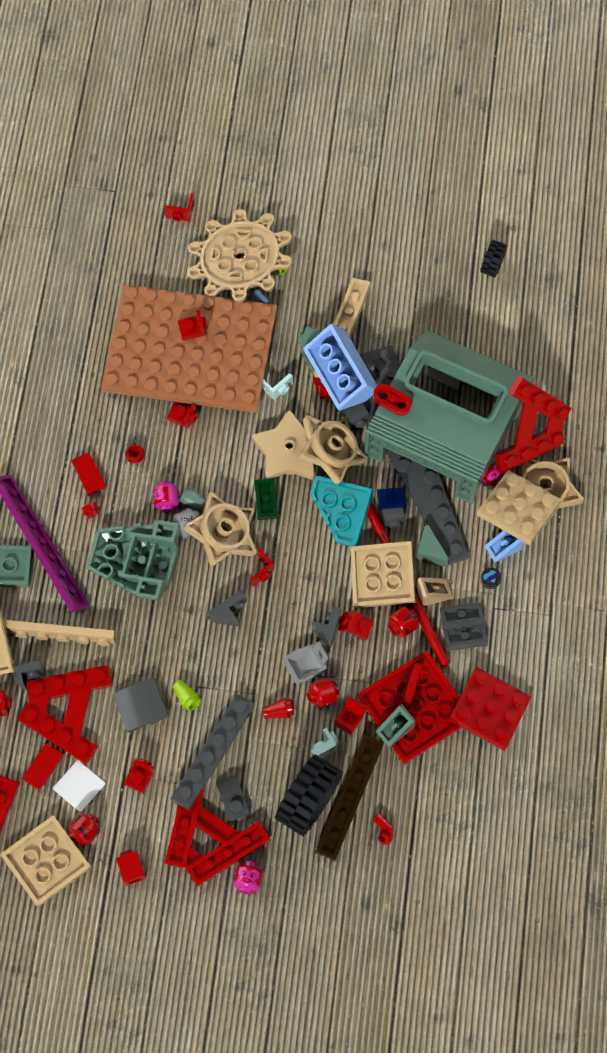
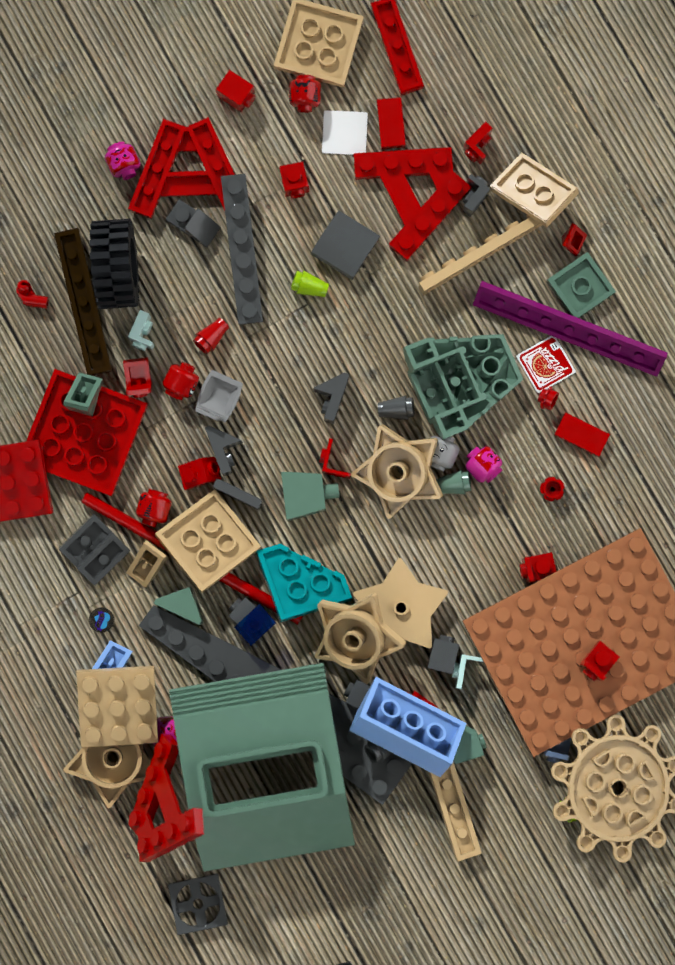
camera: 145 degrees right, 15 degrees up
(73, 535) = (546, 364): none -> sticker
(192, 572) = (397, 408): none -> dark grey cone
(266, 499) = (383, 537): dark green plate -> none
(284, 401) = (443, 654): none -> dark grey brick
(295, 560) = (306, 494): none -> sand green torso
(340, 591) = (238, 494): none -> dark grey tile
(393, 399) = (318, 715): red plate -> none
(412, 684) = (96, 444): red tile -> none
(558, 355) = (208, 901): none -> dark grey piece

